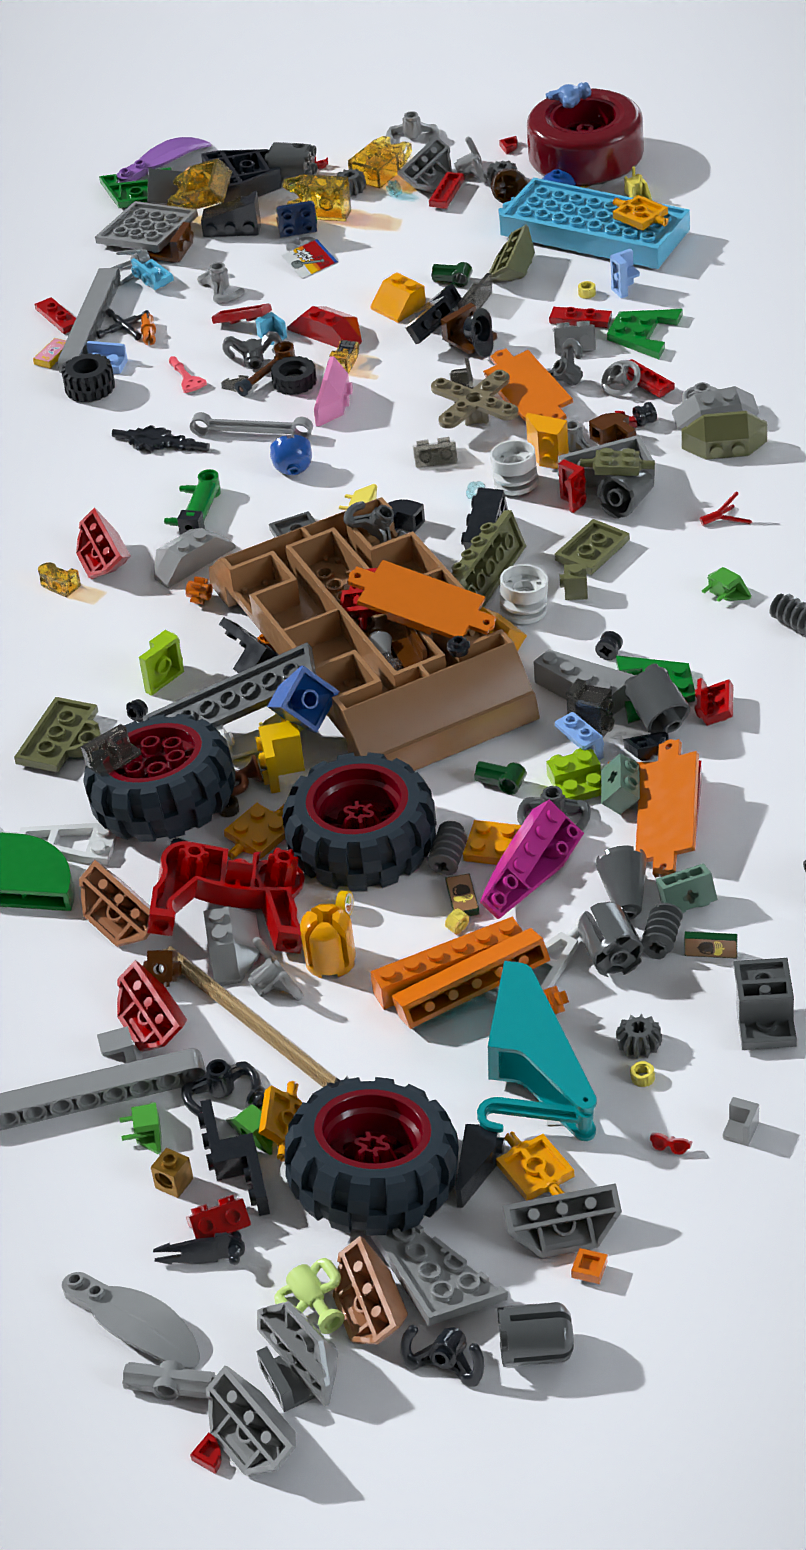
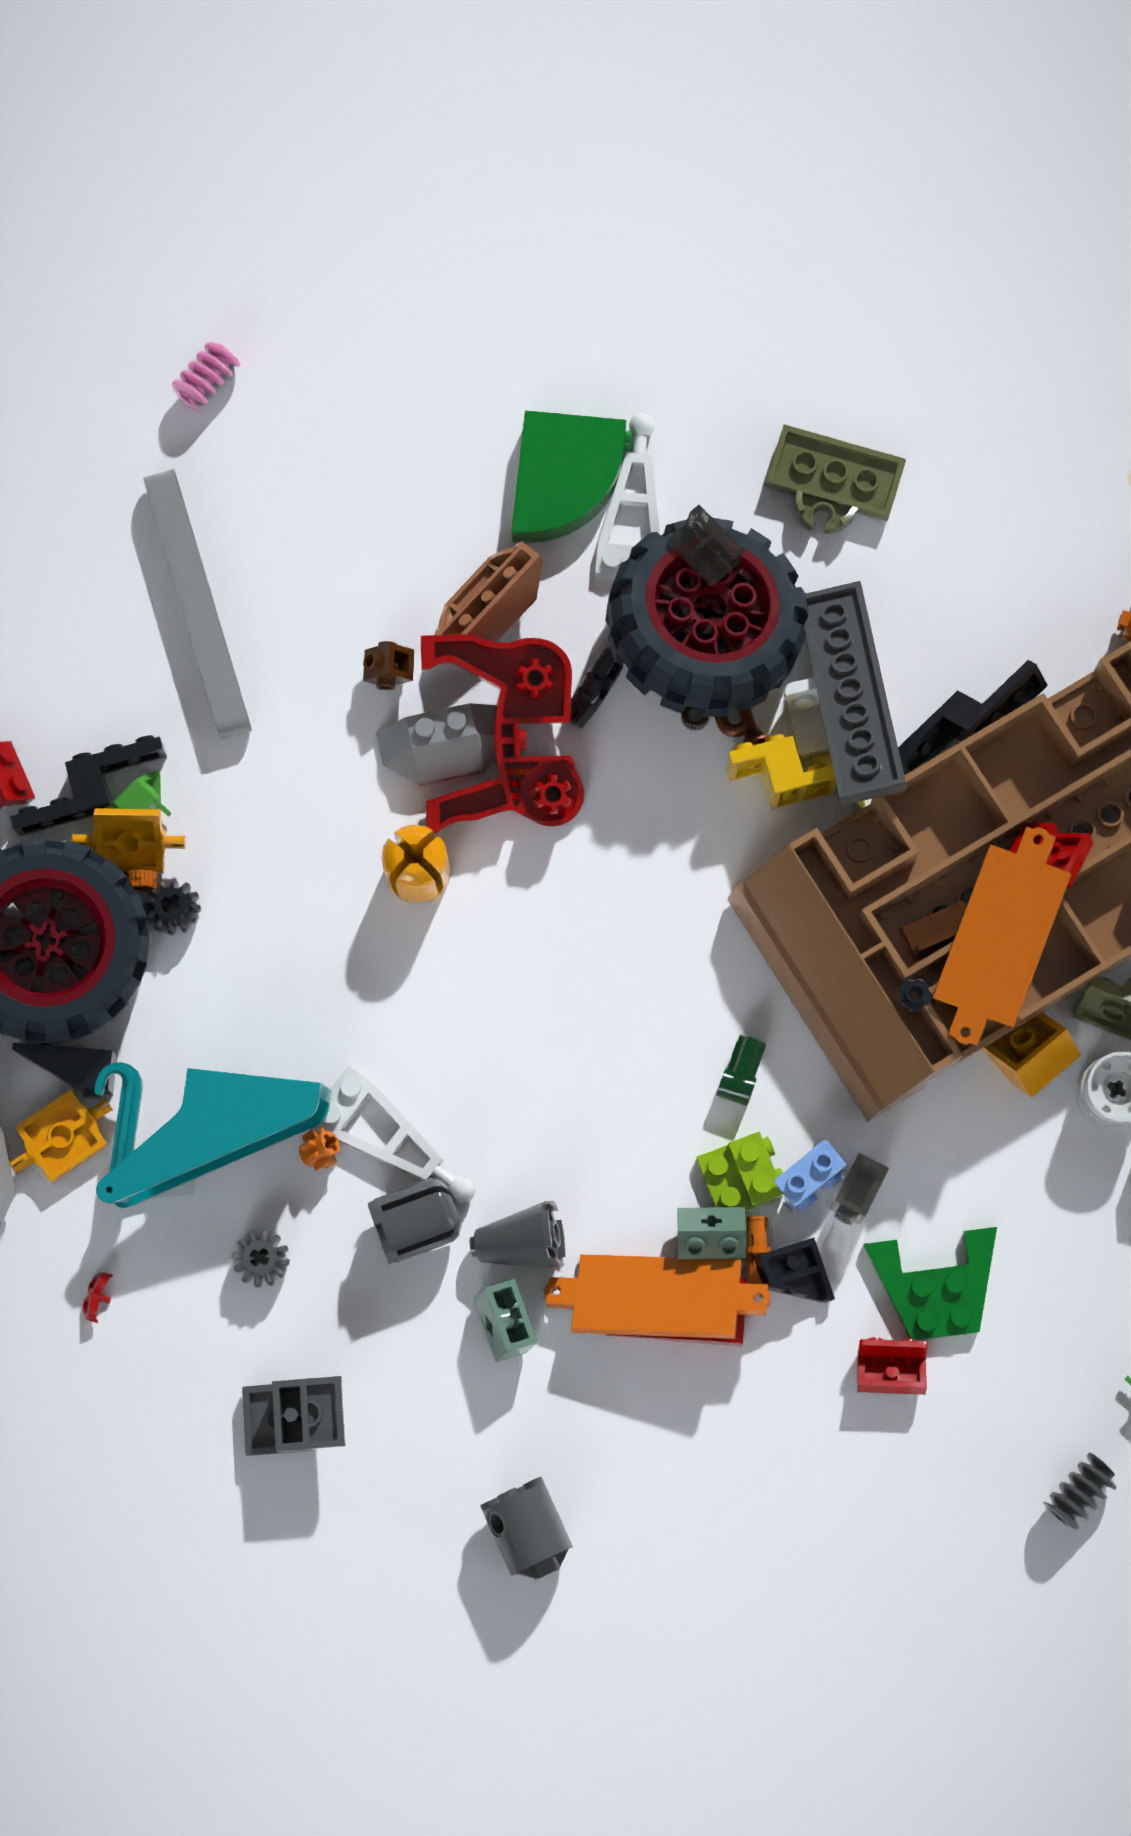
camera: 85 degrees right, 35 degrees up
(117, 1041) = (262, 629): light grey panel -> none
(136, 709) = (882, 571): black plate -> none
(146, 1127) = (146, 679): bright green piece -> none
(147, 1009) = (314, 662): red wedge -> none
(161, 662) = (972, 595): lime plate -> none
(172, 1172) = (64, 717): pearl gold brick -> none
(218, 1081) = (203, 746): black piece -> none
(254, 1022) = (311, 783): tan axle -> none
(256, 831) = (645, 759): light orange plate -> none
(256, 1096) = (177, 806): black bush -> none
(271, 974) = (376, 801): light grey piece -> none
(303, 699) = (811, 788): blue slope -> none
(345, 901) = (503, 880): tile -> none
(360, 821) = (614, 824): black wheel -> none
(383, 643) = (952, 888): light grey piece -> none
(417, 967) = (389, 1018): orange brick -> none
(447, 848) = (593, 1006): dark grey piece -> none
(457, 921) = (468, 1025): light yellow axle -> none
(462, 894) = (520, 1030): tile -> none
(467, 978) = (351, 1046): orange brick -> none
(488, 841) = (619, 1066): light orange plate -> none
(531, 858) = (571, 1113): dark pink wedge -> none
(559, 672) = (922, 1190): light grey wedge -> none
(565, 805) = (694, 1116): dark grey piece -> none
(609, 645) = (1015, 1216): black wheel -> none
(642, 1067) = (209, 1252): light yellow axle -> none
(657, 700) = (866, 1284): dark grey cylinder -> none
(661, 930) = (440, 1288): dark grey piece -> none
(710, 944) = (415, 1351): tile -> none
(742, 1121) = (121, 1382): light grey panel -> none

